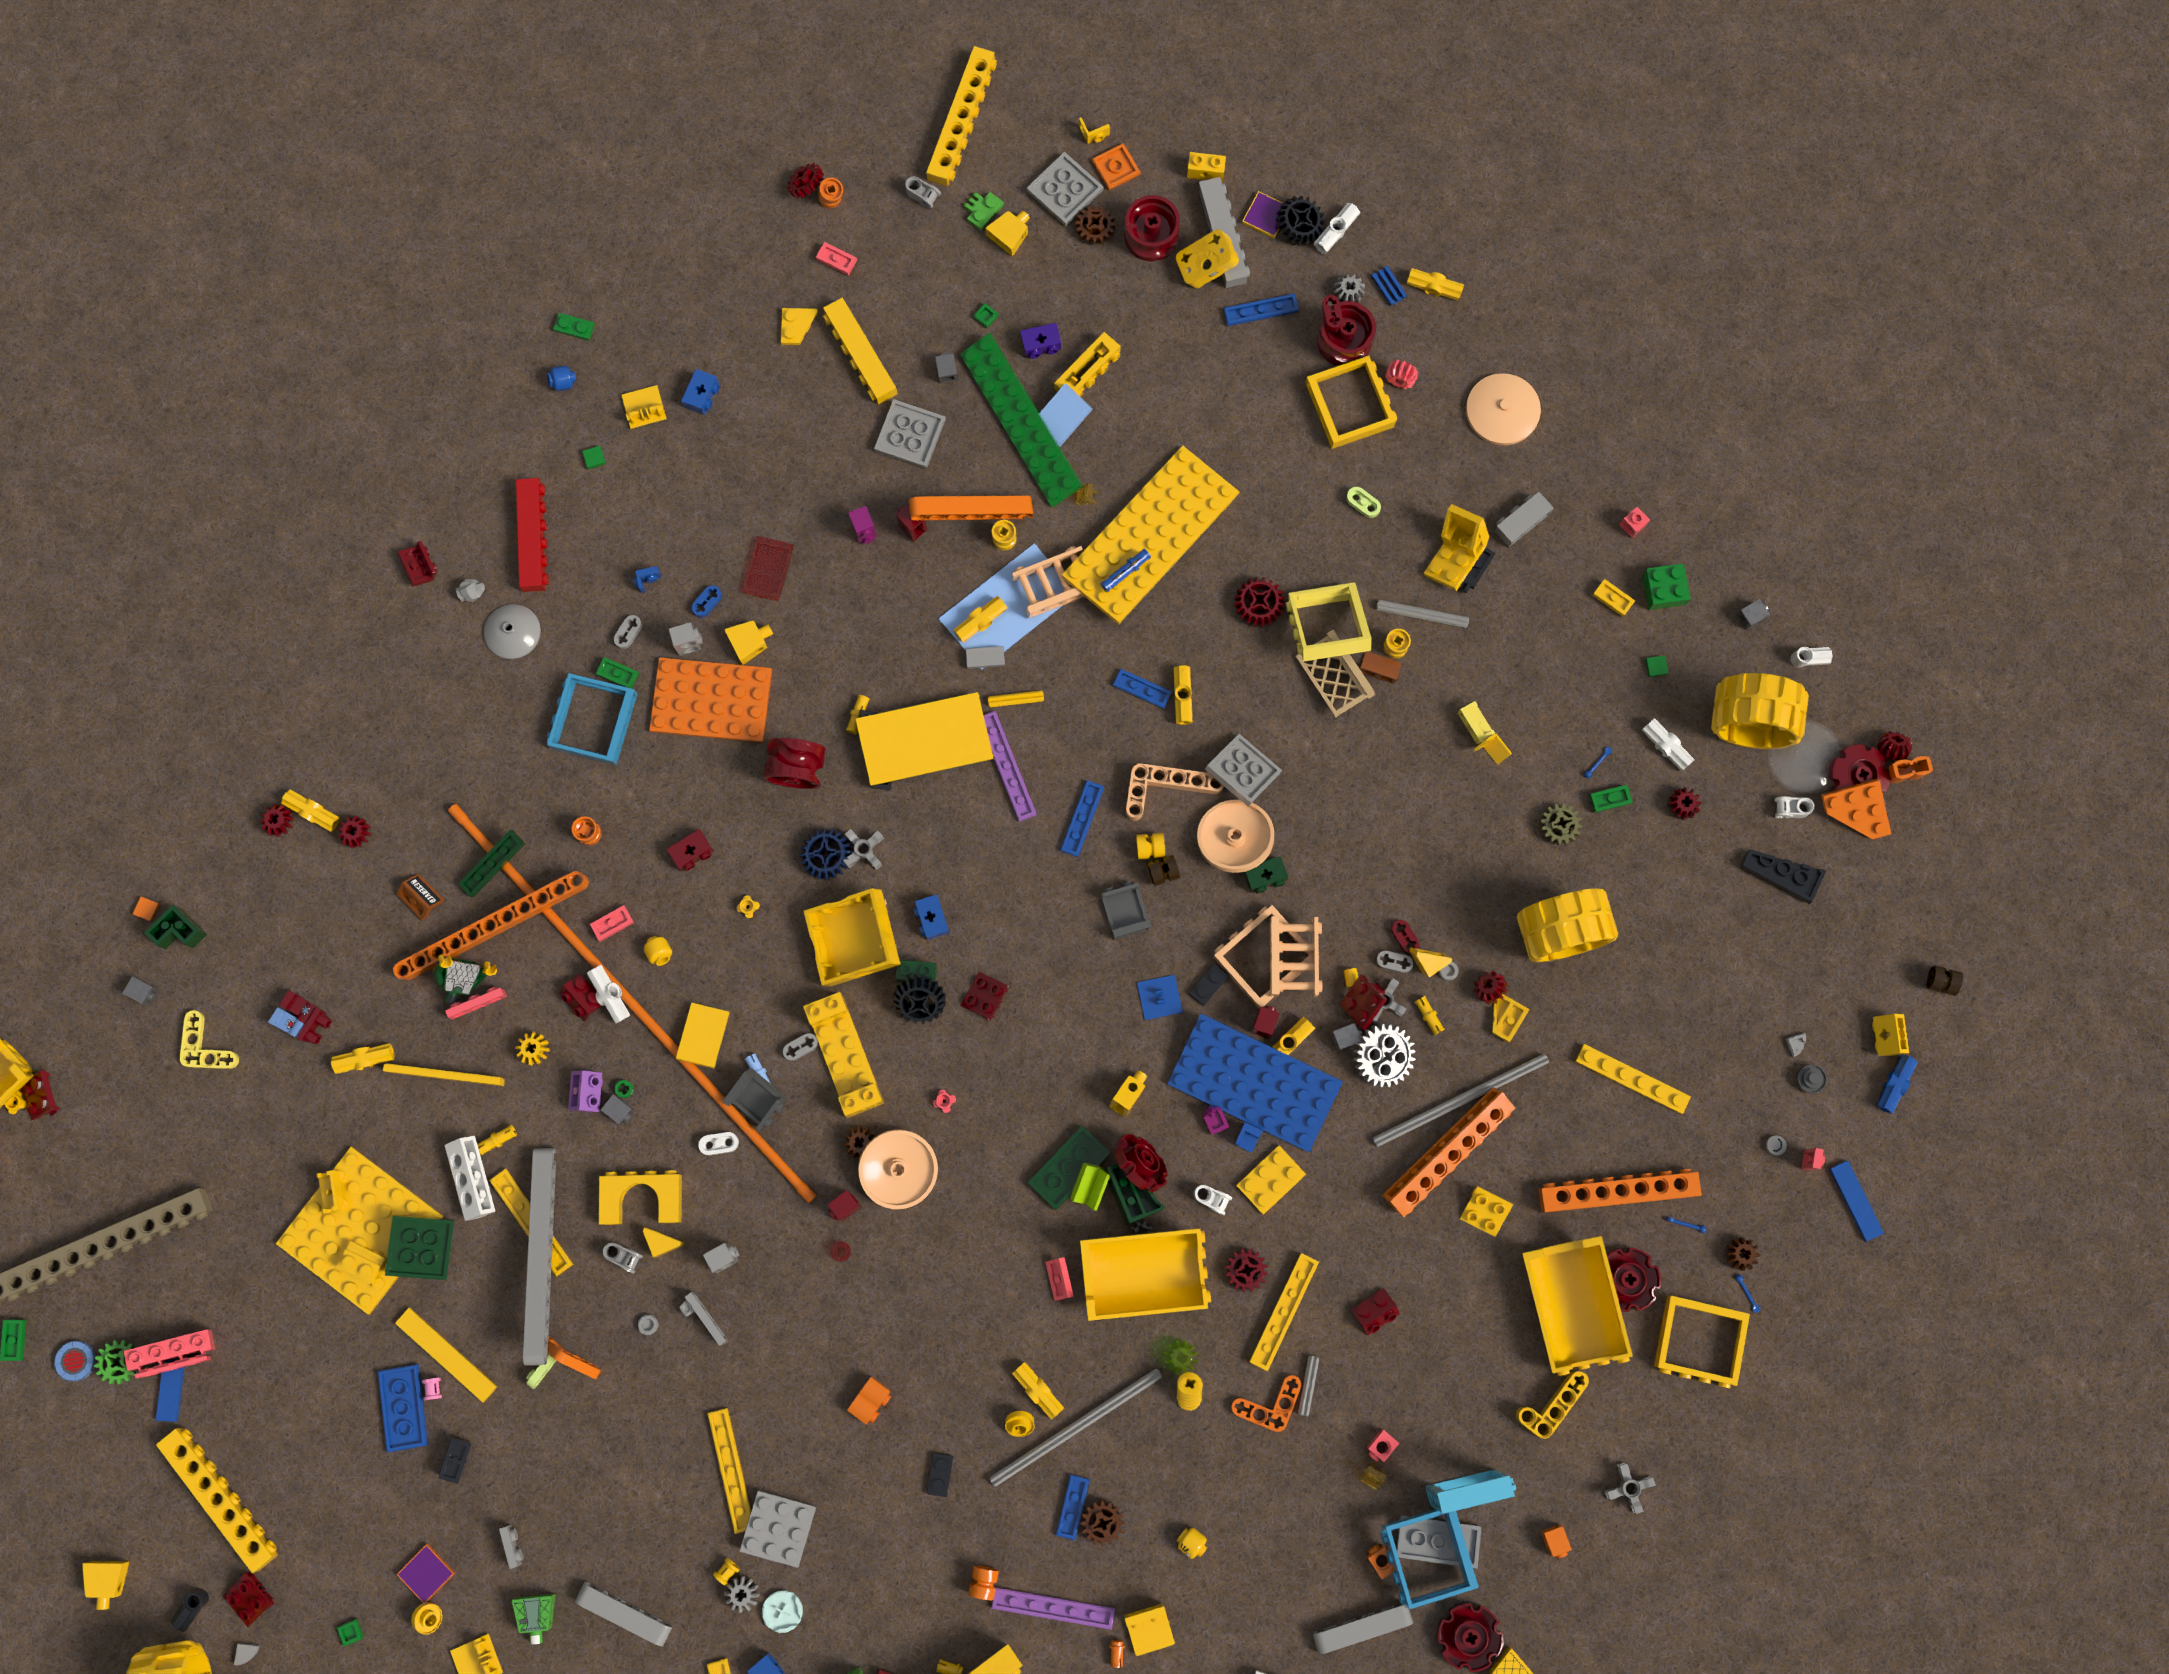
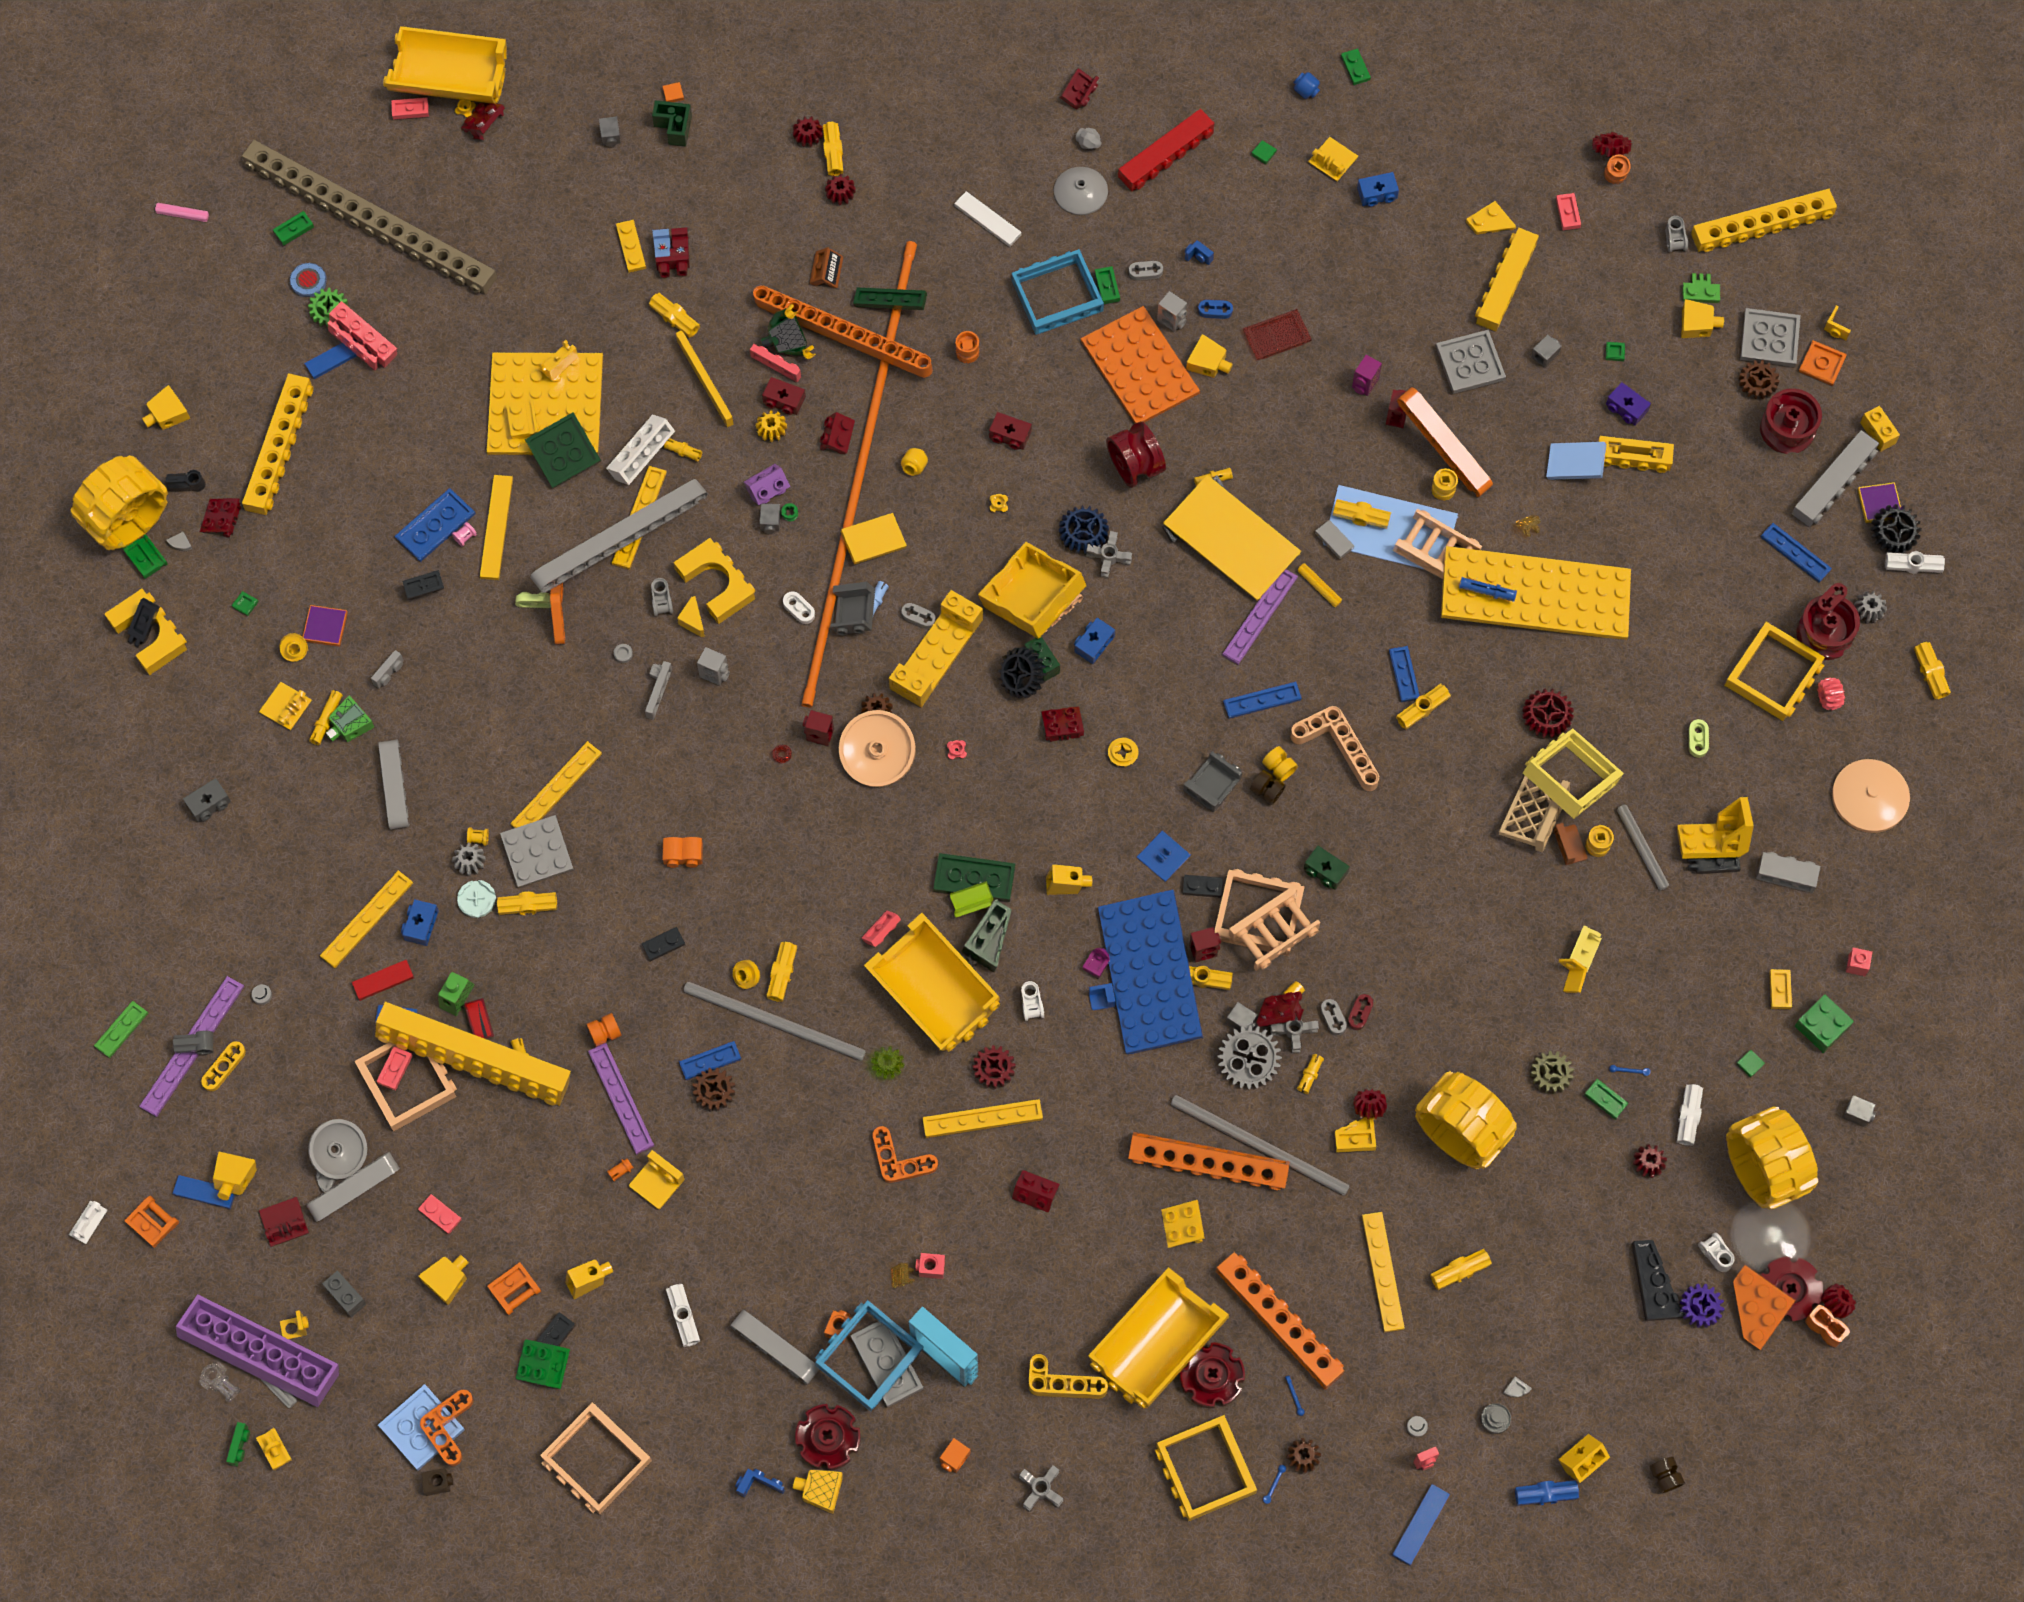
camera: 55 degrees right, 10 degrees down
(195, 1049) = (595, 198): light yellow beam -> none
(266, 1049) = (631, 246): none -> yellow plate
(478, 727) = (987, 219): none -> white tile
(502, 1019) = (774, 396): none -> dark red brick
(519, 1639) = (322, 724): none -> yellow pin
(608, 994) = (853, 449): white piece -> none
(612, 923) = (910, 415): coral plate -> none
(819, 1570) = (527, 903): none -> yellow piece
(1021, 420) = (1550, 434): green plate -> none
(1043, 956) = (1128, 746): none -> yellow gear
(1141, 1163) = (1018, 922): dark red piece -> none
(1189, 1391) = (865, 1083): yellow piece -> none
(1192, 1543) = (747, 1168): yellow head -> none
(1207, 258) = (1800, 479): yellow axle -> none
(1235, 836) = (1339, 822): light nougat dish -> none
(1243, 770) = (1397, 791): light grey plate -> none
(1271, 1180) = (1081, 1039): yellow plate -> none
(1308, 1386) = (937, 1178): light grey axle -> none
(1381, 273) = (1905, 623): blue tile -> none
(1429, 961) = (1355, 1042): yellow slope -> none
(1449, 972) = (1359, 1065): light grey tile -> none
(1673, 1016) = (1460, 1269): none -> yellow piece
(1811, 656) = (1863, 1184): white piece -> none
(1818, 847) = (1694, 1309): none -> dark purple gear

